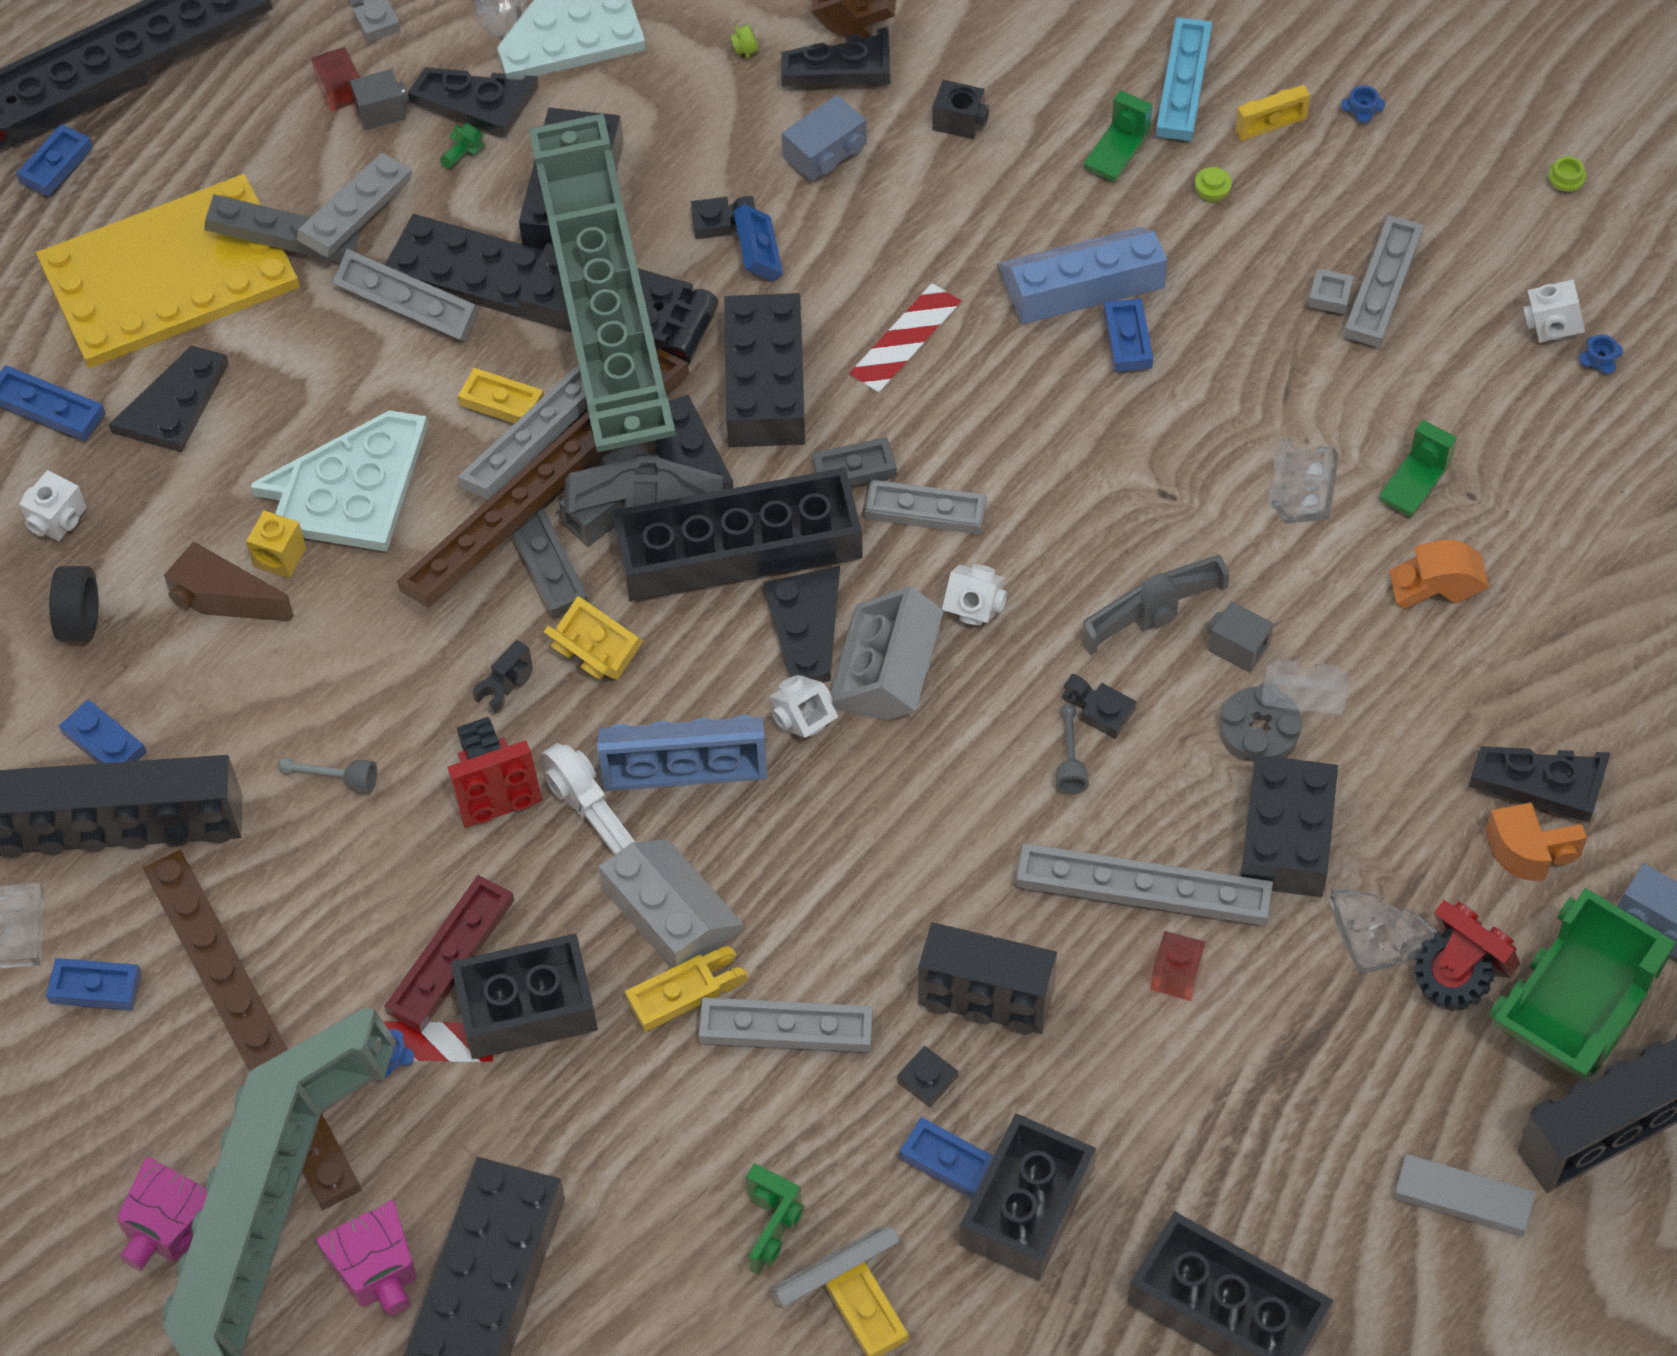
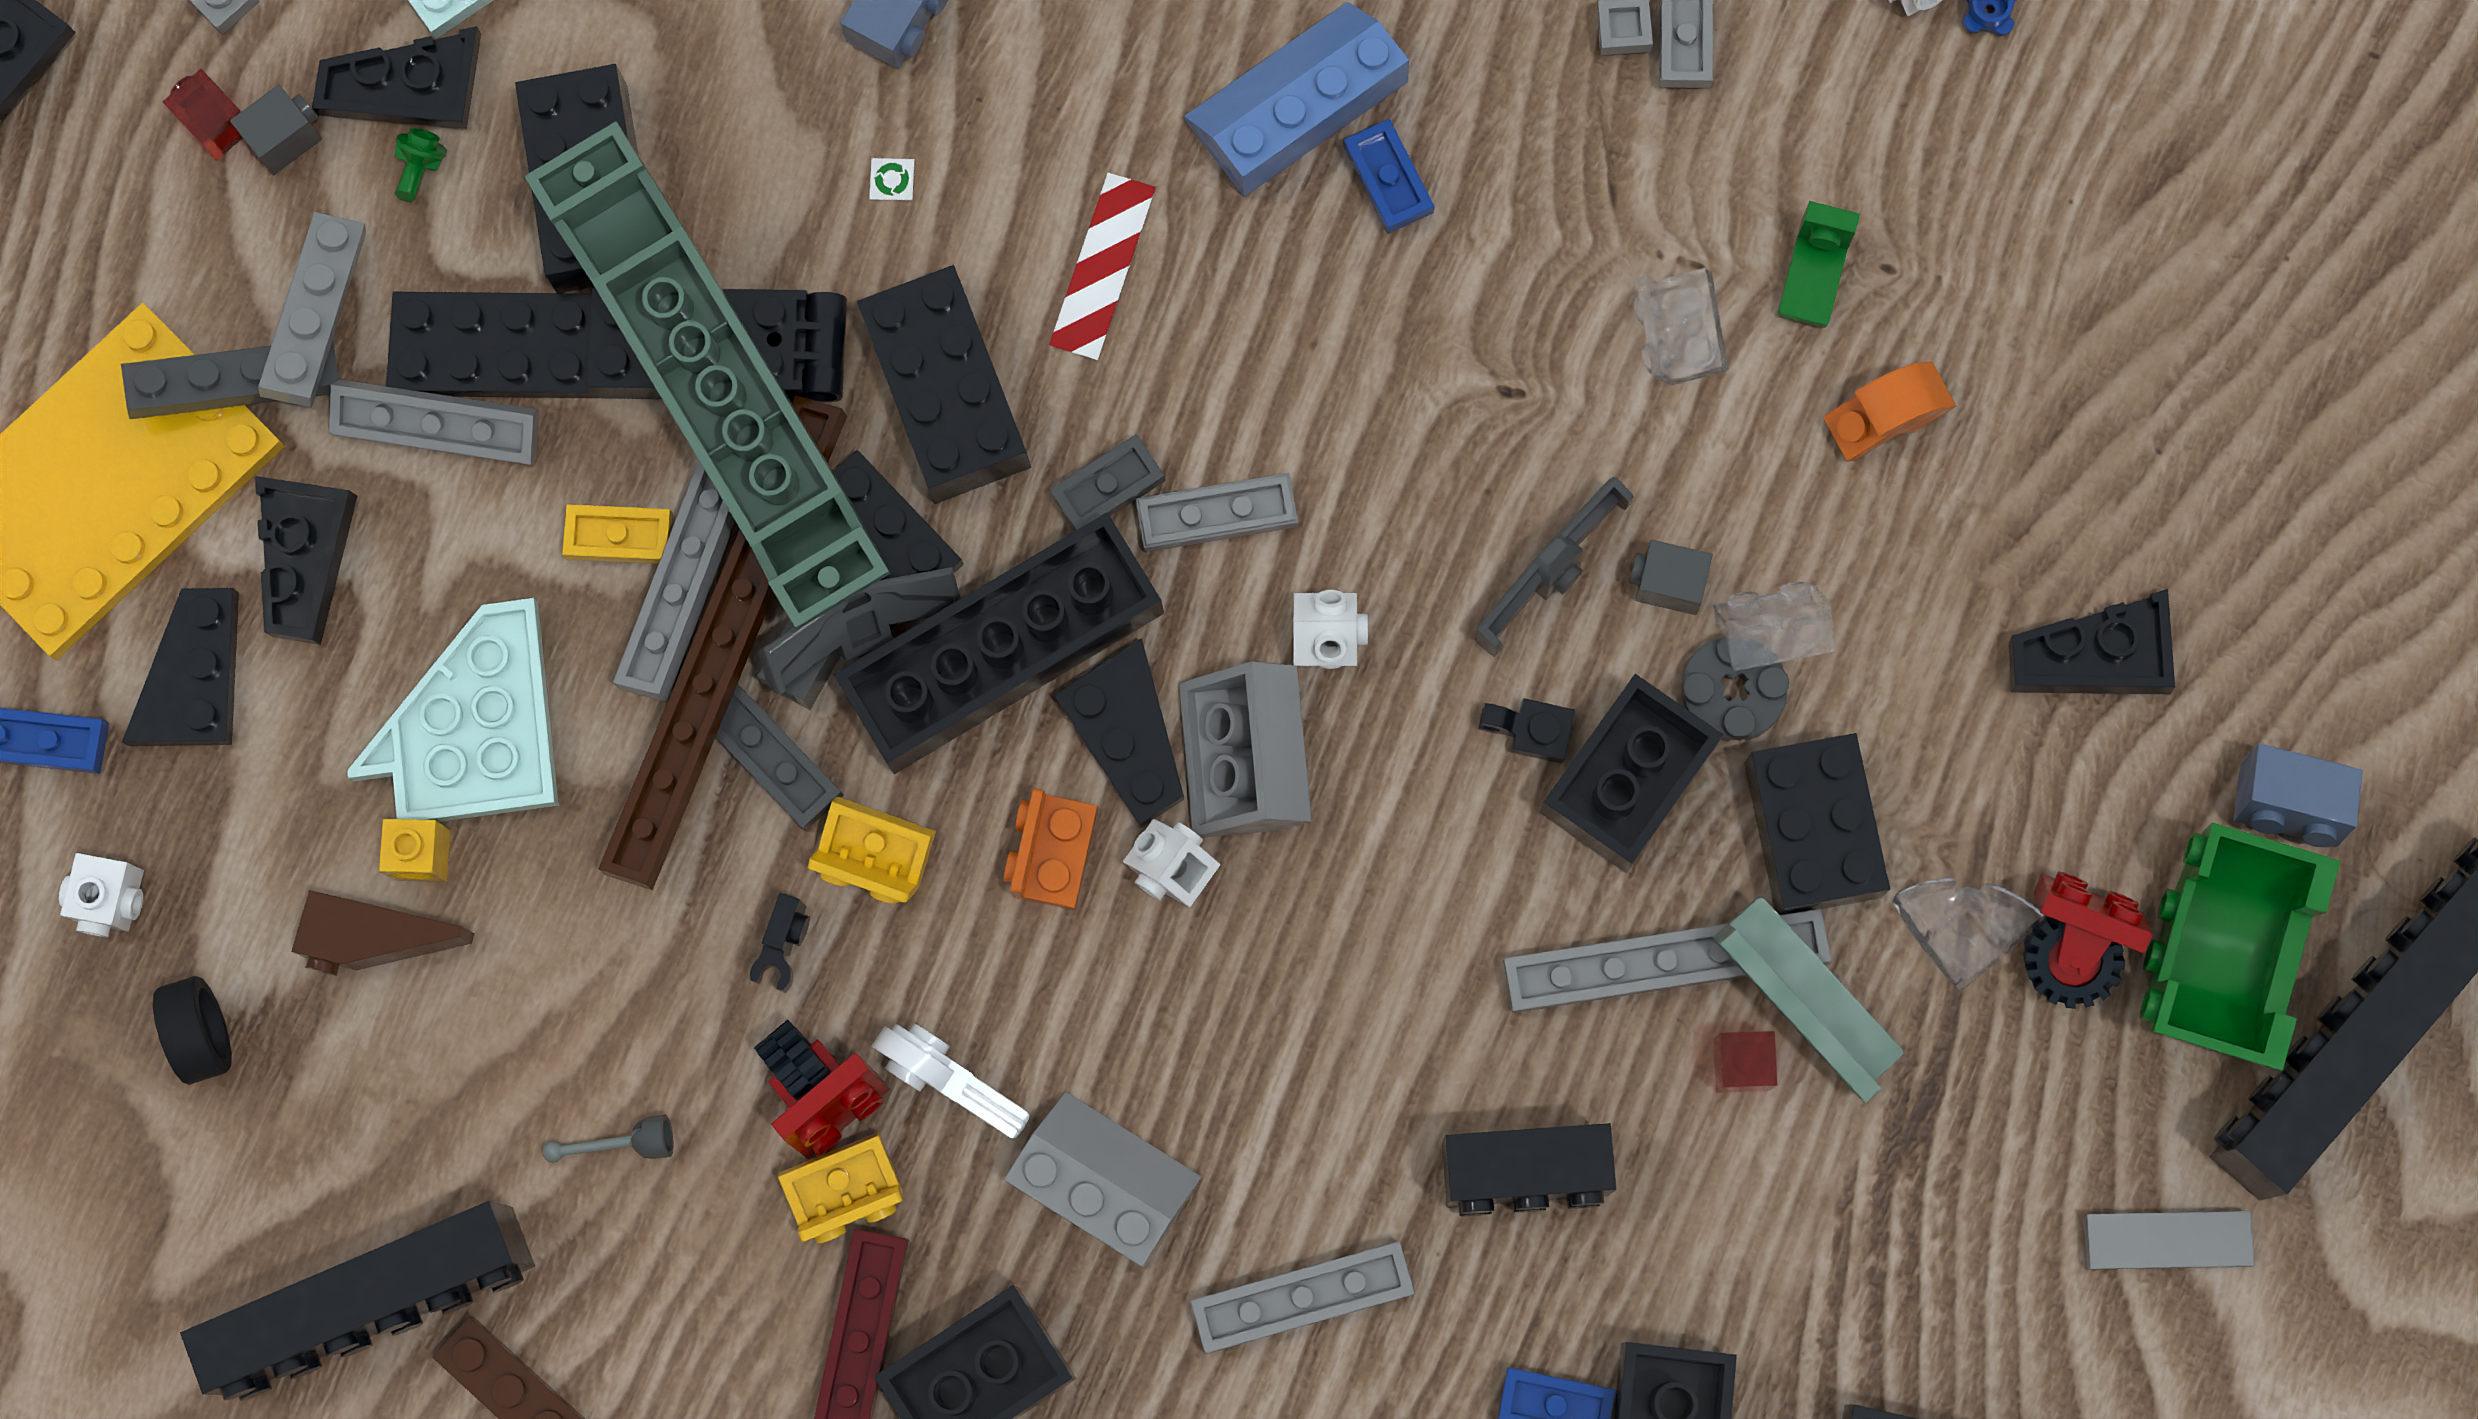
camera: 15 degrees left, 20 degrees up
(101, 735) = (304, 1193): blue plate -> none
(282, 348) = (303, 550): none -> black wing
(480, 846) = (842, 1188): none -> yellow bracket
(682, 753) = (1043, 972): medium blue slope -> none
(683, 988) = (1159, 1293): yellow hinge -> none
(715, 215) = (792, 165): black plate -> none
(720, 678) = (1051, 850): none -> orange bracket
(758, 242) = (865, 191): blue plate -> none
(786, 245) = (891, 179): none -> white sticker
(927, 1076) = (1493, 1303): black plate -> none
(1071, 774) = (1528, 836): dark grey hinge -> none
(1161, 748) = (1630, 773): none -> black brick
(1242, 935) = (1809, 996): none -> sand green panel
(1525, 848) = (2101, 757): orange brick -> none

